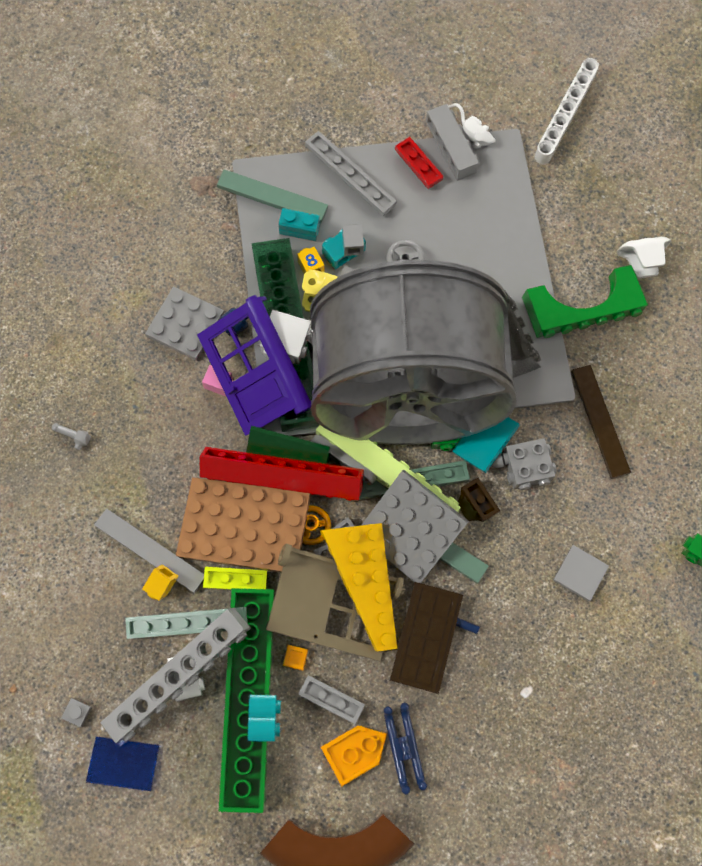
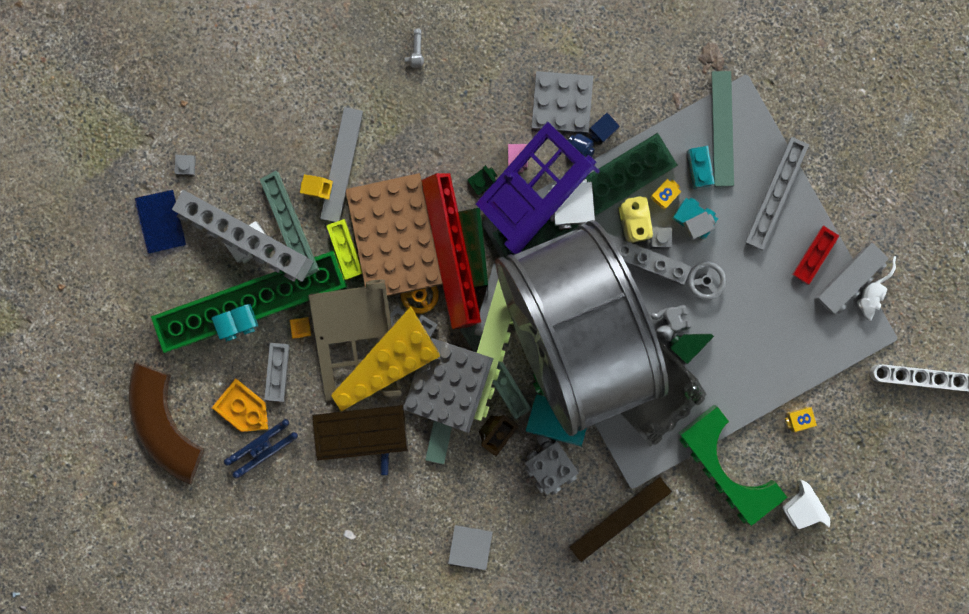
camera: 75 degrees right, 15 degrees up
(225, 421) = (482, 180): none -> dark green bracket
(226, 294) = (603, 128): none -> dark blue brick
(562, 230) = (800, 419): none -> yellow brick

